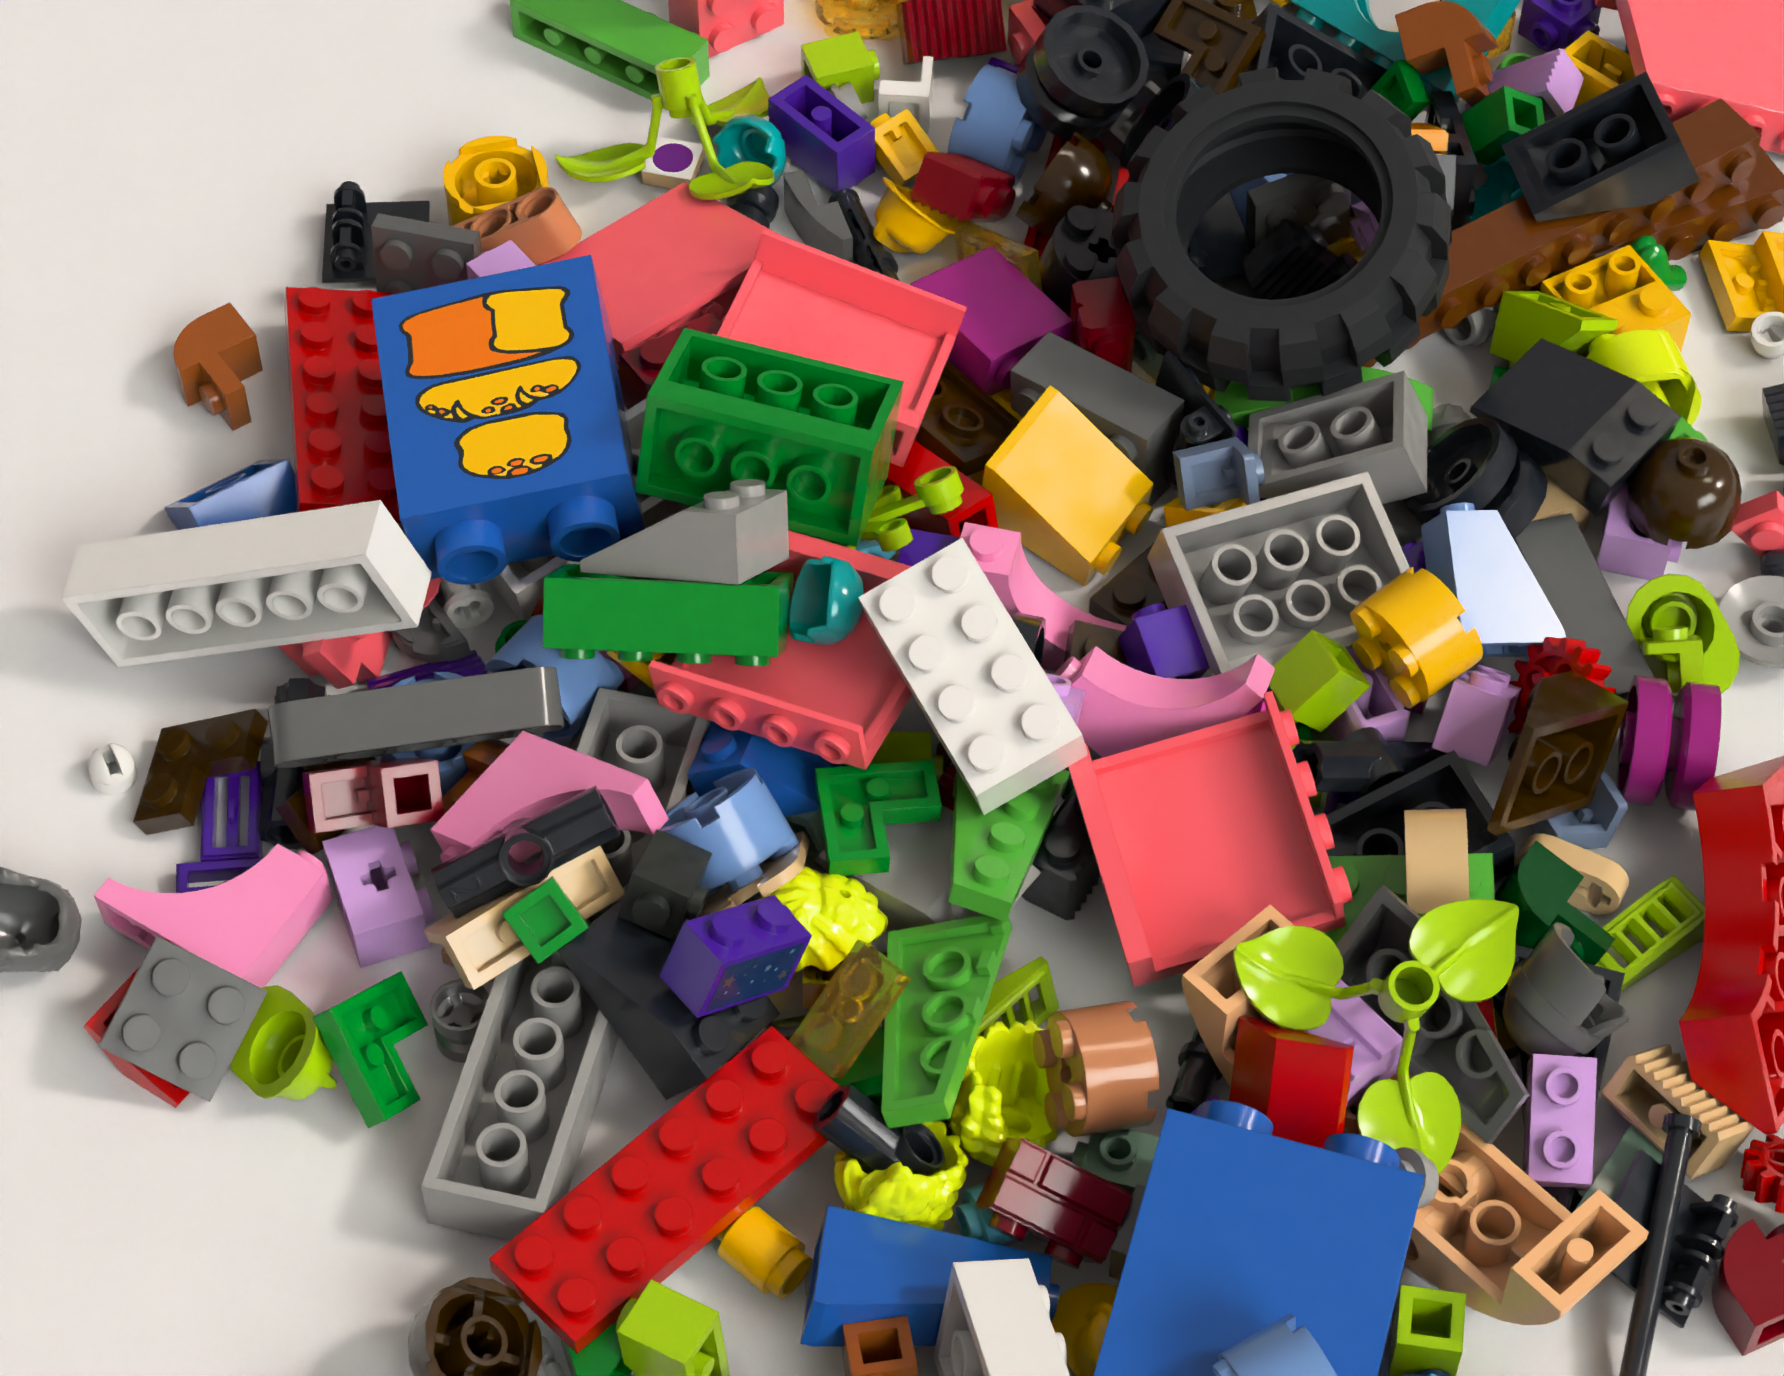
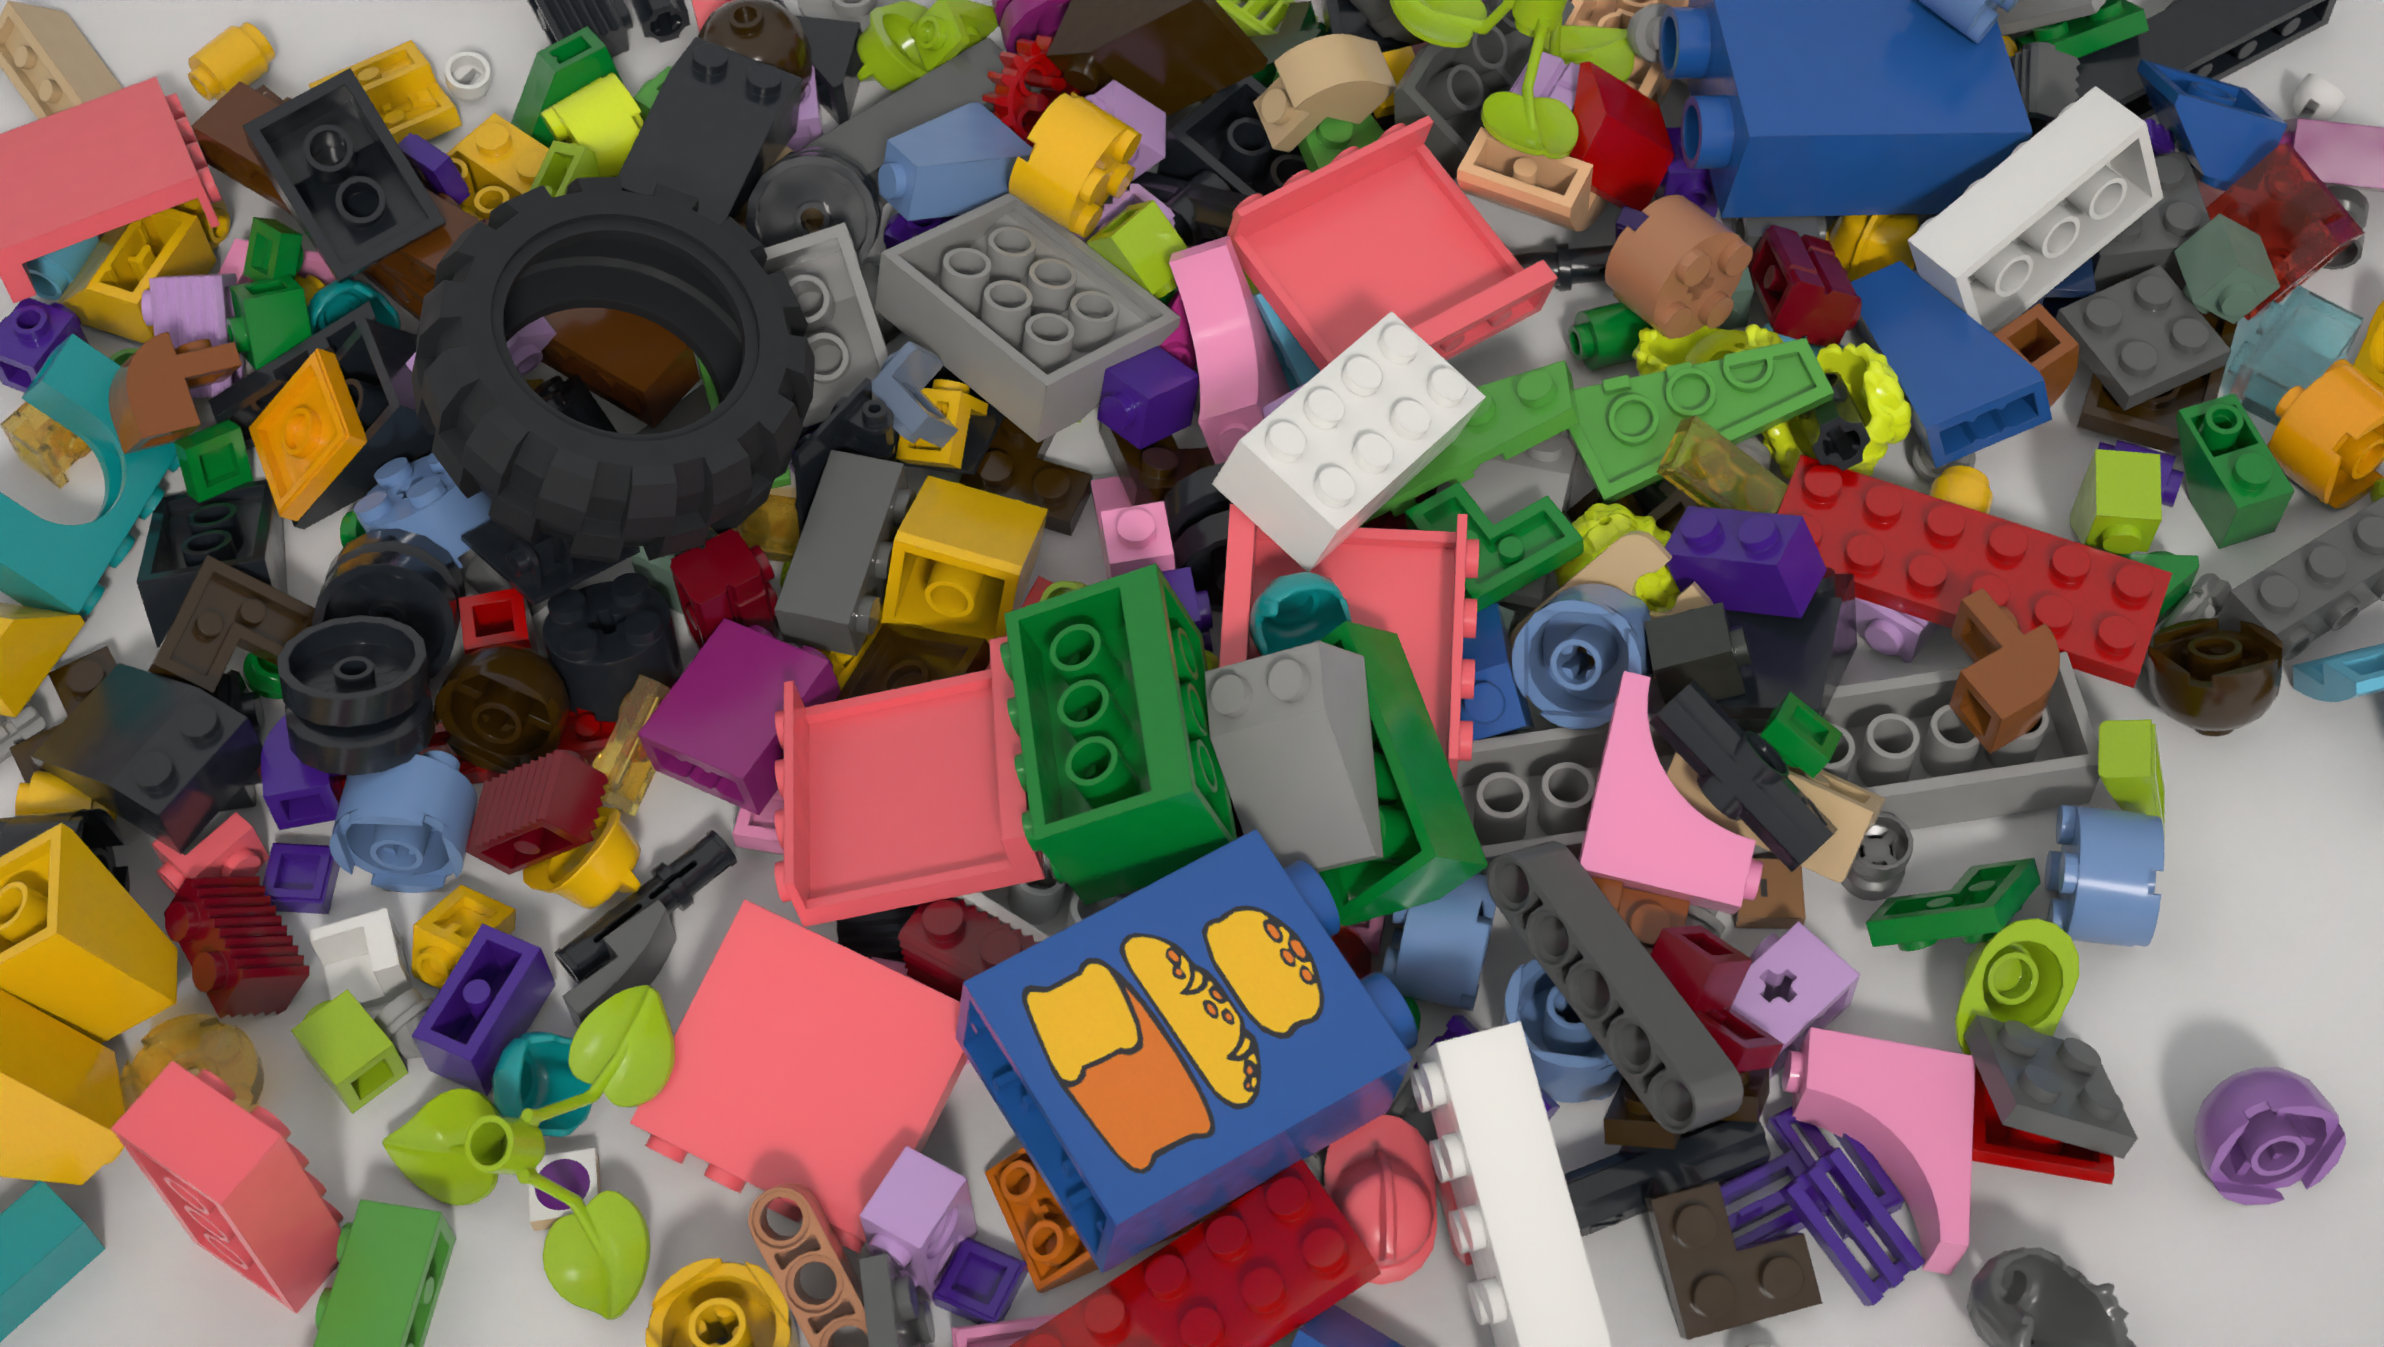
camera: 110 degrees left, 5 degrees up
(64, 1166) = (2266, 1134): none -> medium lavender cylinder
(169, 848) = (1872, 1210): none -> dark purple tile
(332, 1153) = (2105, 875): none -> medium blue brick
(404, 1215) = (2132, 766): none -> lime slope
(525, 1133) = (2010, 674): none -> dark orange brick
(1614, 237) = (434, 168): none -> dark purple tile
(1712, 565) = (834, 63): none -> black slope
(1729, 389) = (556, 75): none -> green slope

